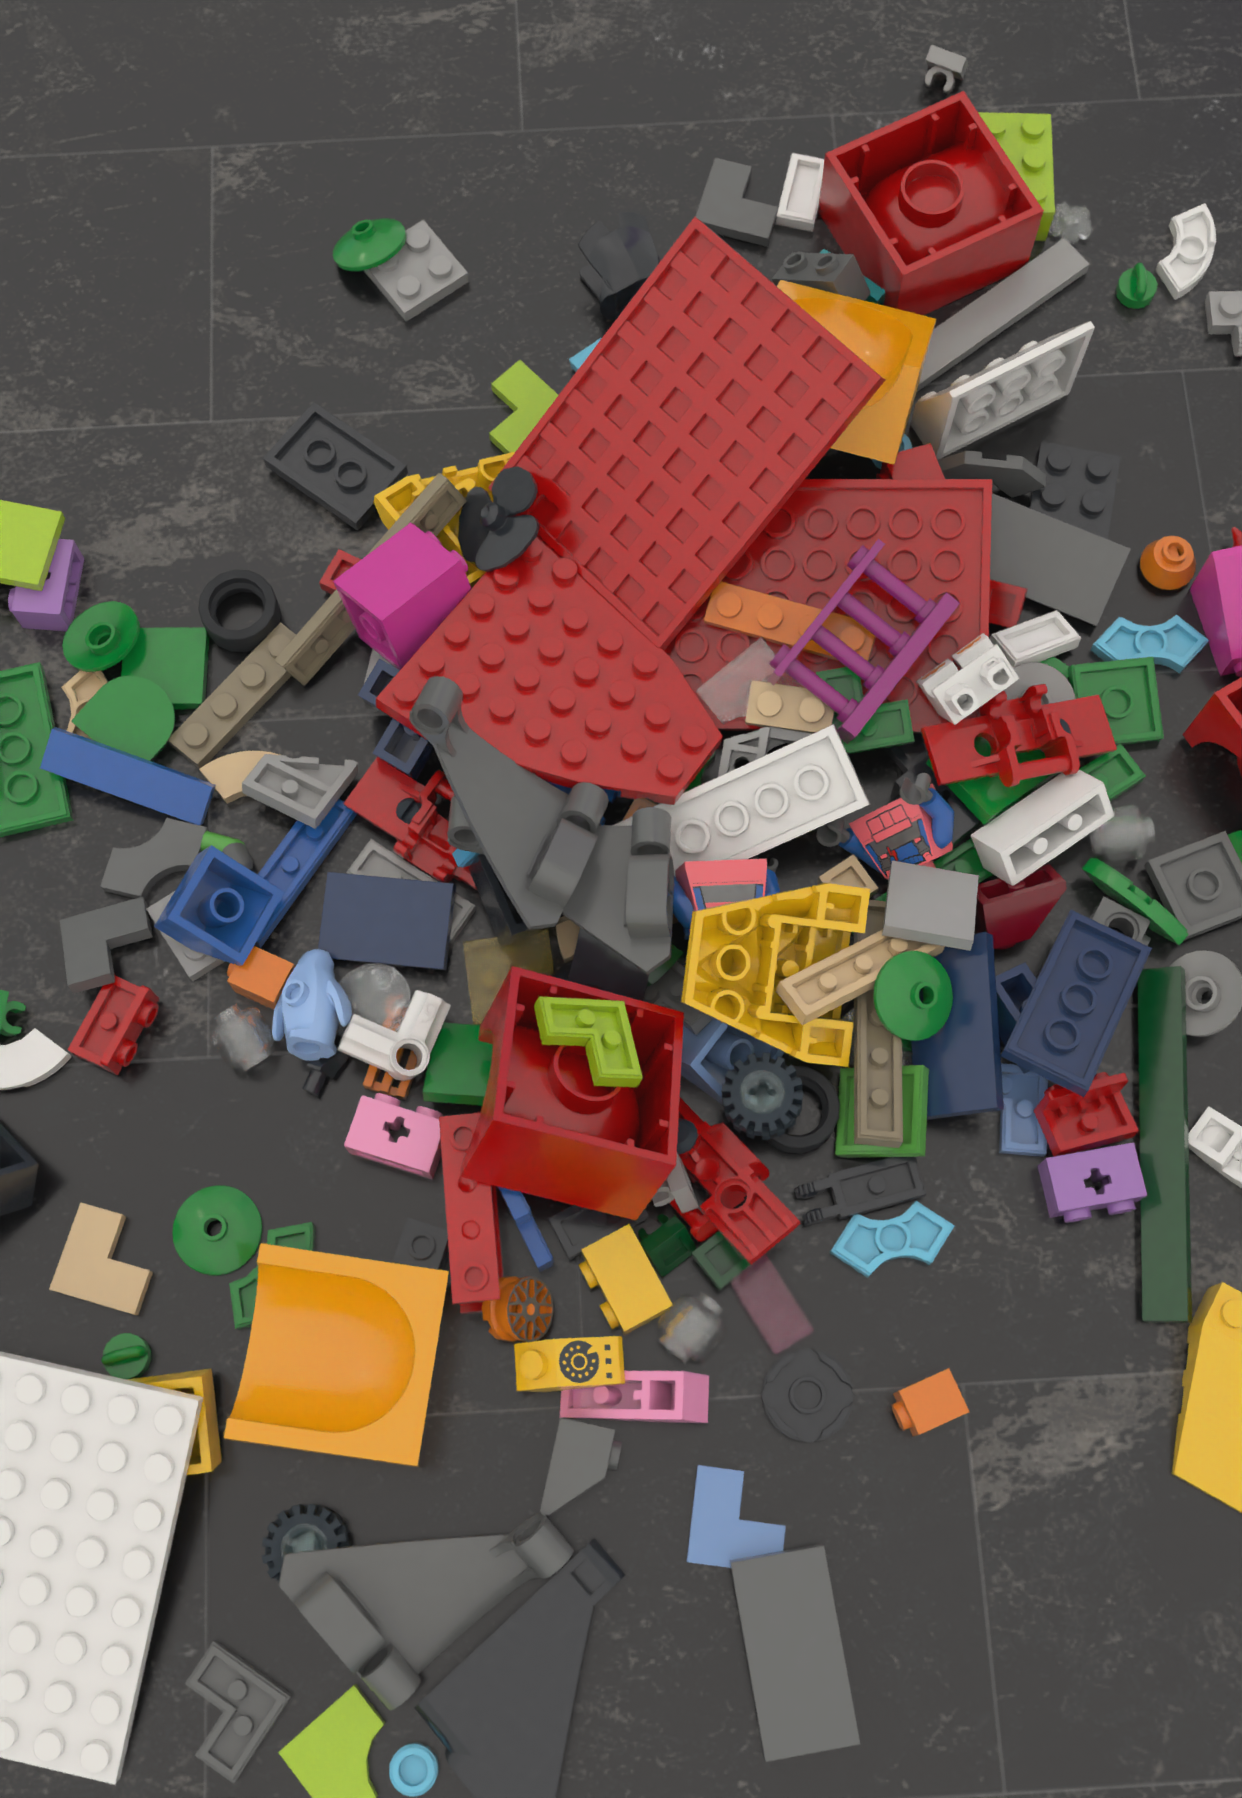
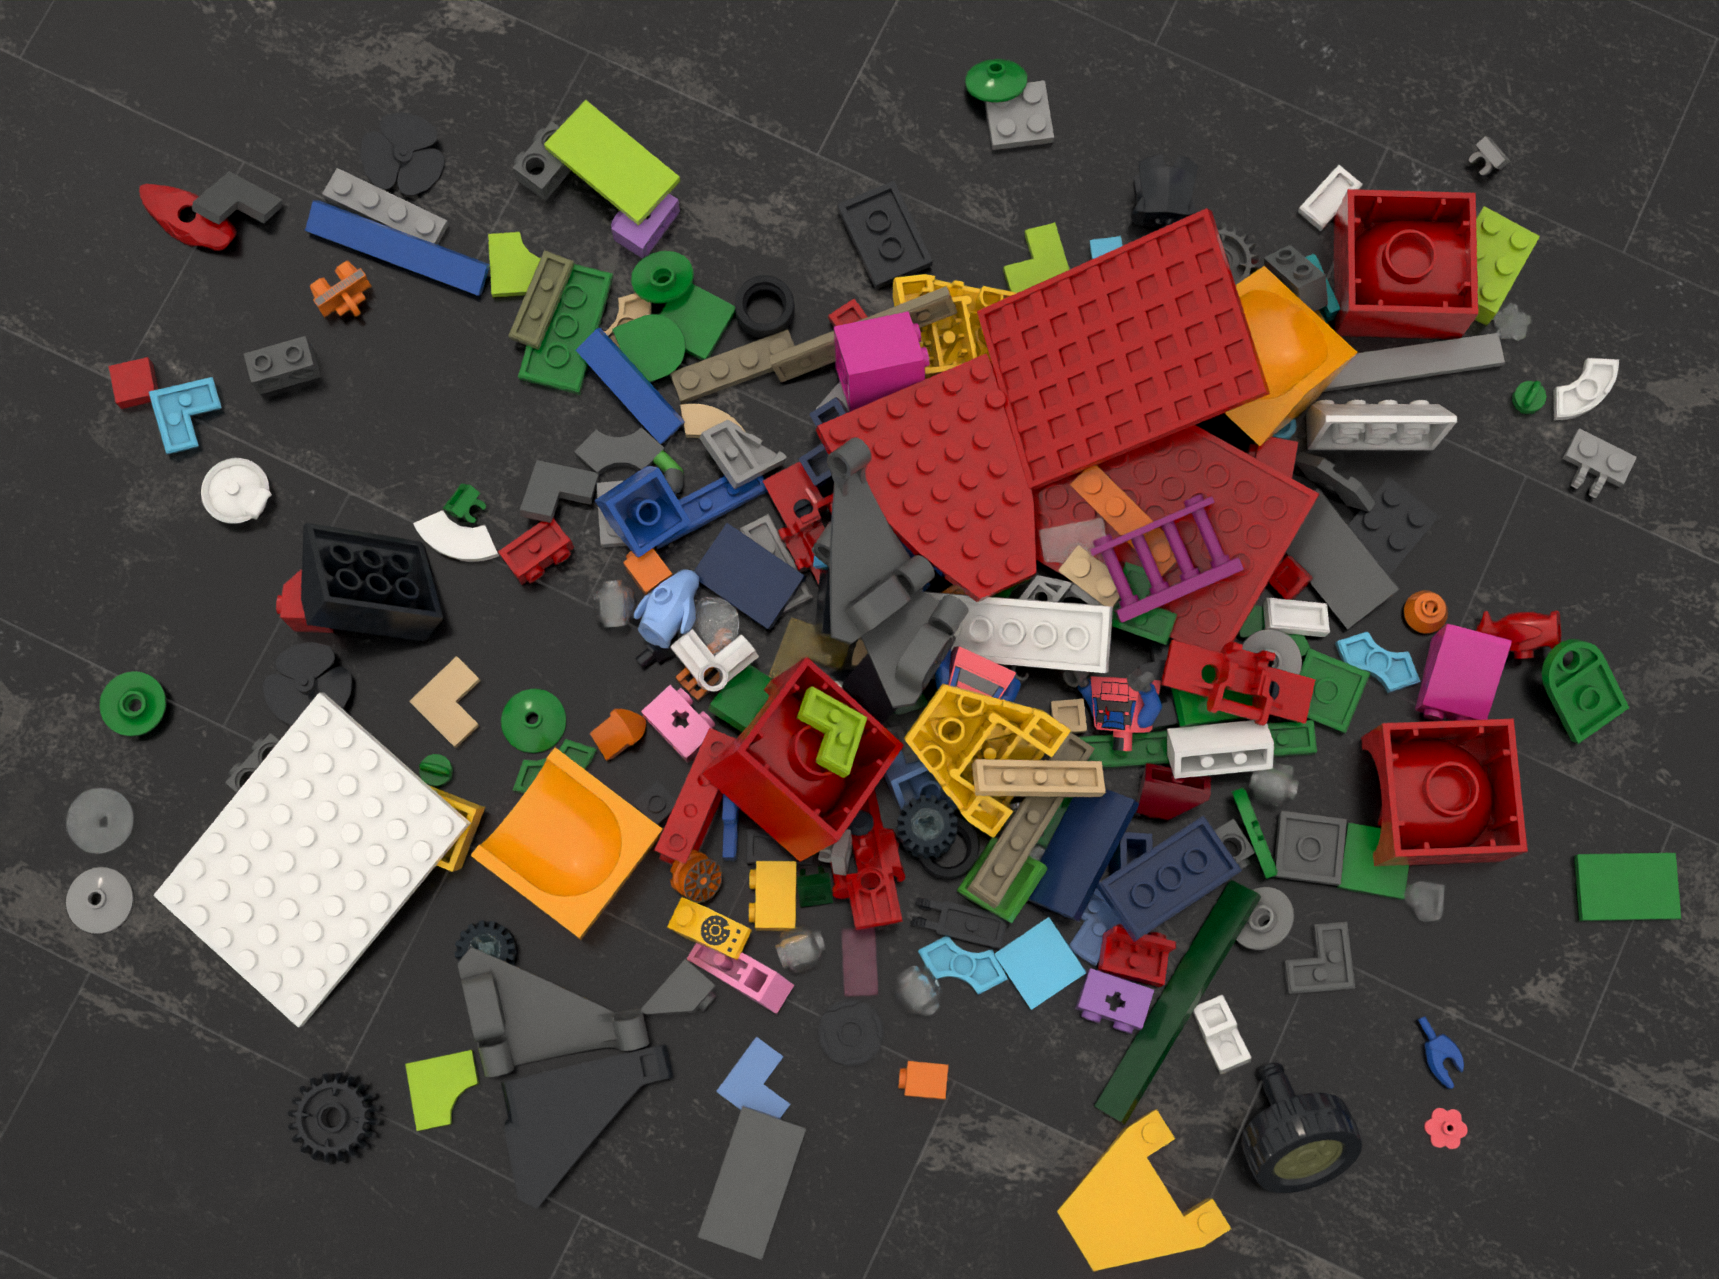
camera: 25 degrees right, 5 degrees up
(248, 1704) = (401, 1025): dark grey tile -> none
(329, 1187) = (618, 732): none -> orange tile
(414, 1769) = (481, 1120): medium azure tile -> none
(492, 531) = (964, 348): black piece -> none
(720, 1260) = (840, 917): dark green tile -> none
(728, 212) = (1266, 183): dark grey tile -> none
(860, 1298) = (918, 990): none -> clear head
(898, 995) = (1051, 807): green dish -> none
(931, 905) = (1109, 762): light grey tile -> none
(981, 677) = (1216, 630): white hips -> none
(982, 1185) = (1040, 963): none -> medium azure tile

